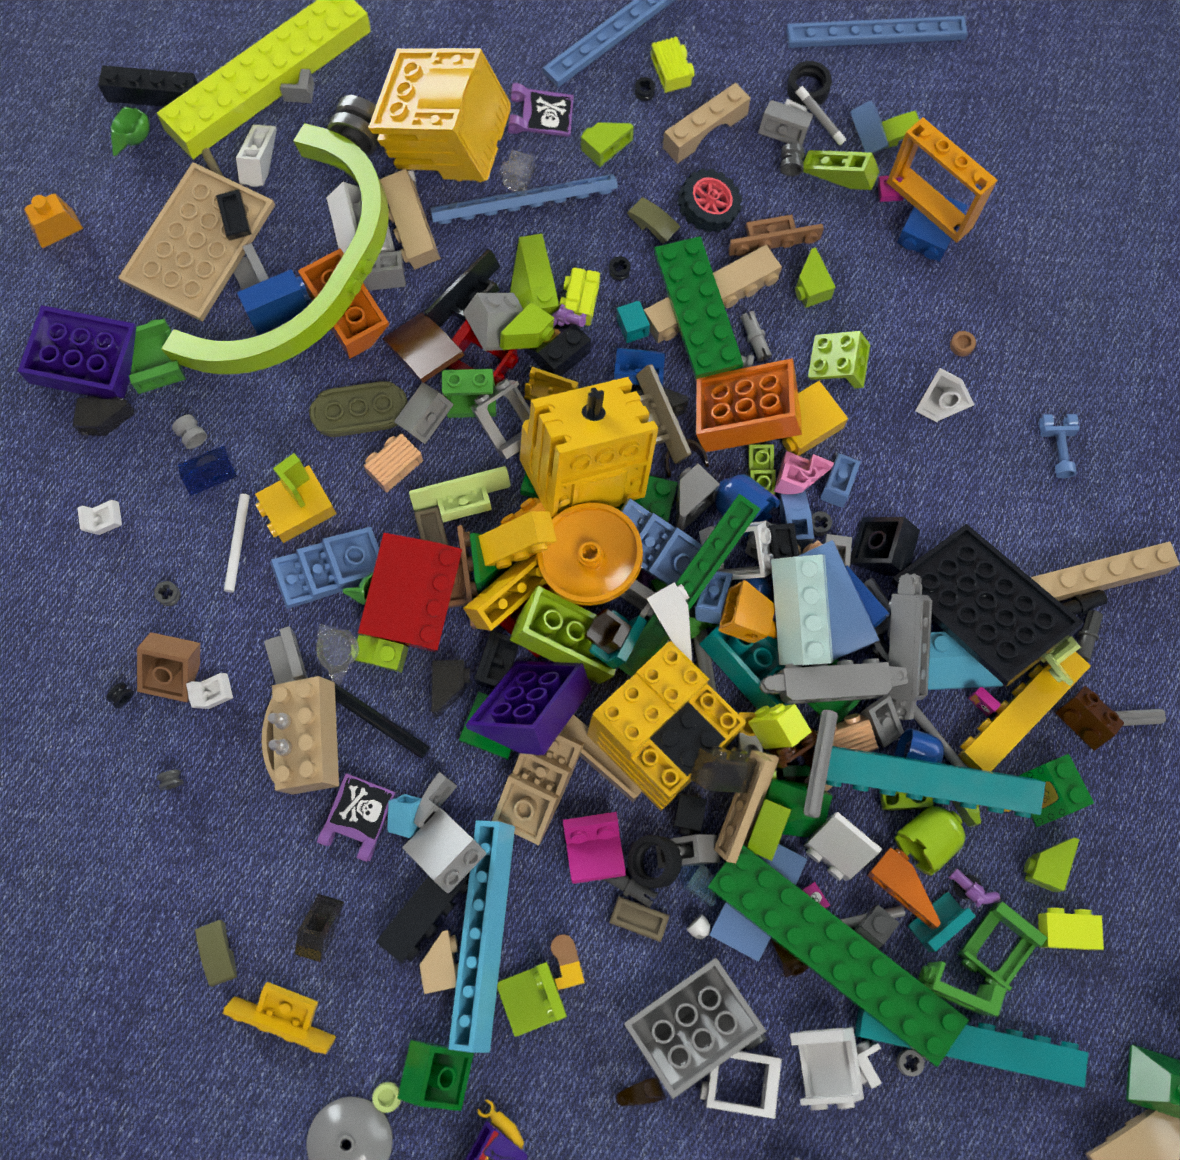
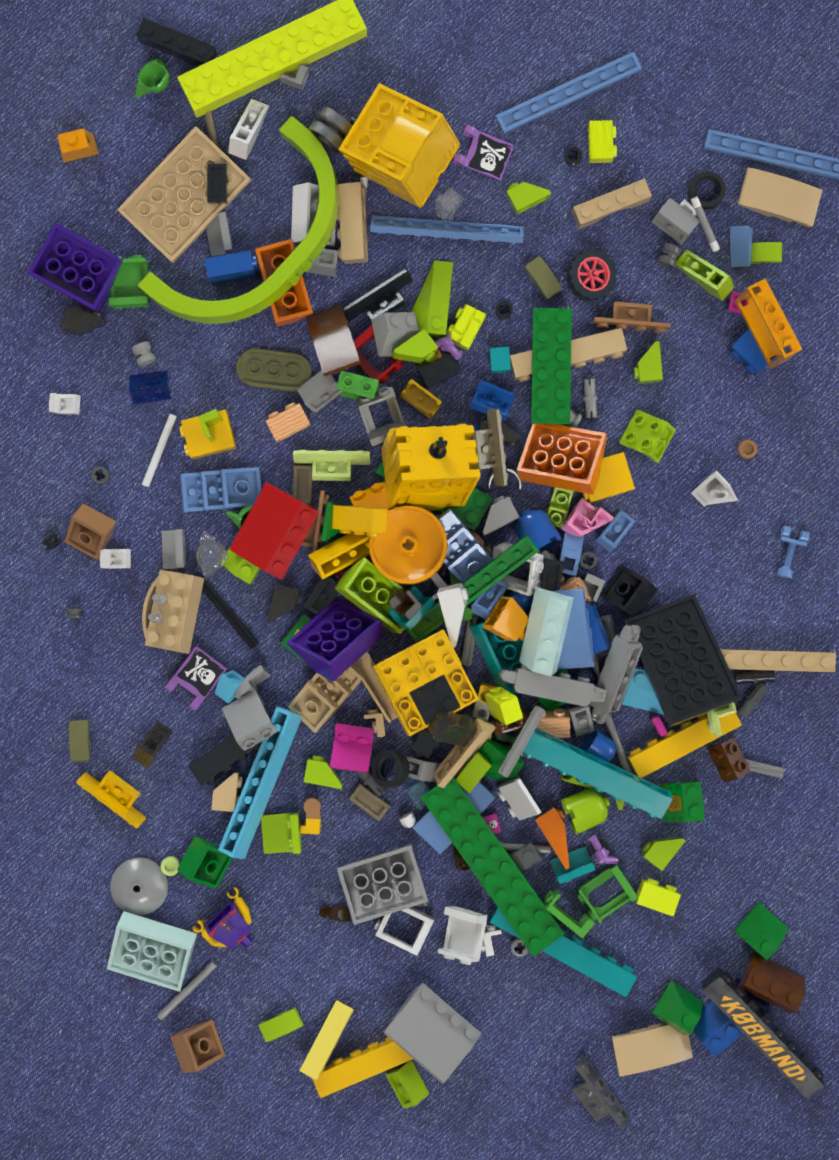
camera: 20 degrees right, 15 degrees up
(562, 897) = (321, 773): none -> lime slope
(620, 804) = (378, 725): none -> tan bracket
(893, 68) = (779, 197): none -> tan slope

